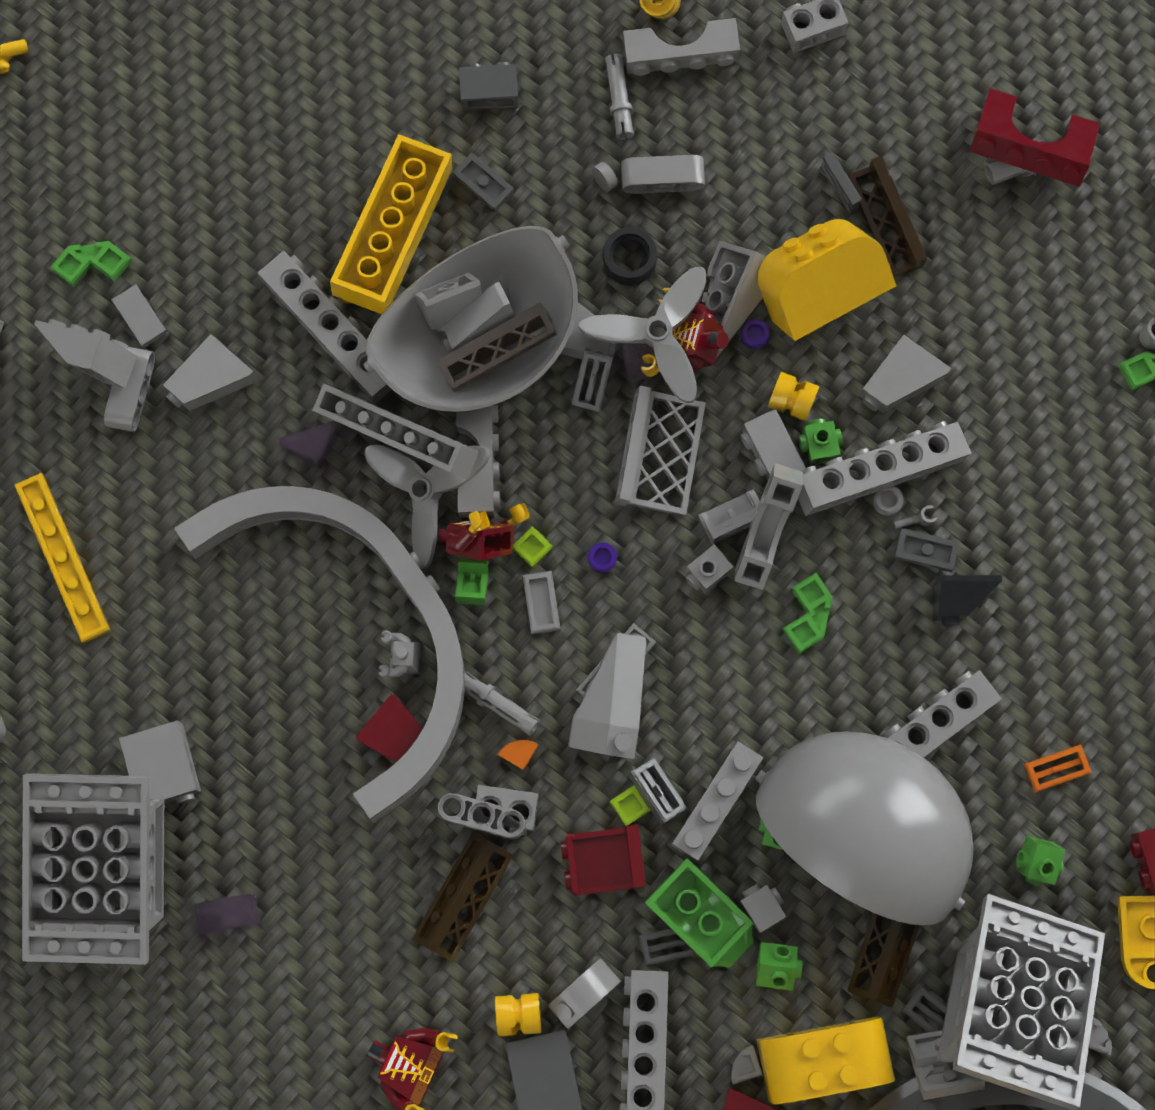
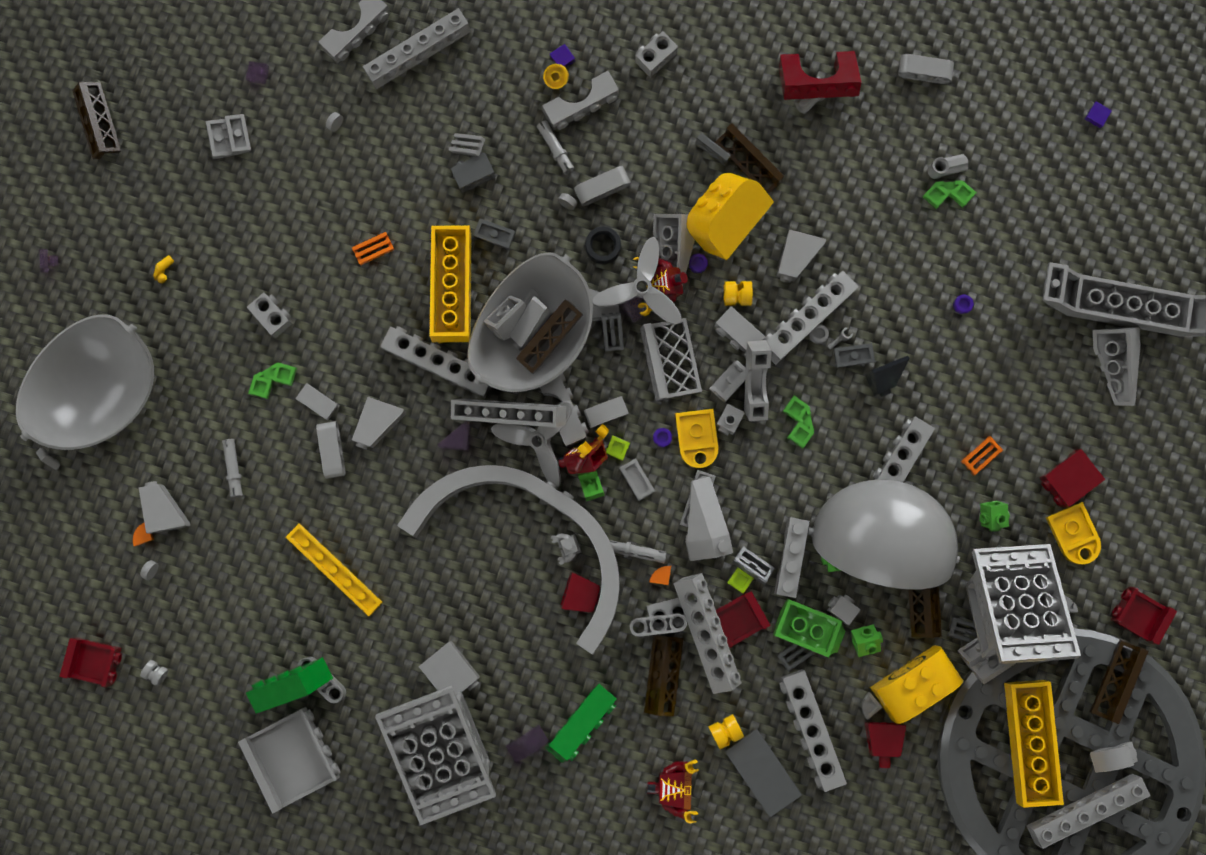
camera: 25 degrees left, 5 degrees up
(90, 352) = (299, 439): light grey slope -> none
(123, 173) = (267, 317): none -> light grey brick
(307, 137) = (369, 242): none -> orange tile
(313, 915) = (581, 723): none -> green wedge
(498, 43) = (457, 142): none -> light grey tile
(536, 489) = (606, 412): none -> light grey slope
(549, 860) = (707, 633): none -> light grey brick
(584, 993) = (760, 703): light grey brick -> none
(652, 575) = (697, 435): none -> yellow tile
(824, 450) = (770, 310): bright green brick -> none
(1116, 540) = (963, 304): none -> dark purple tile

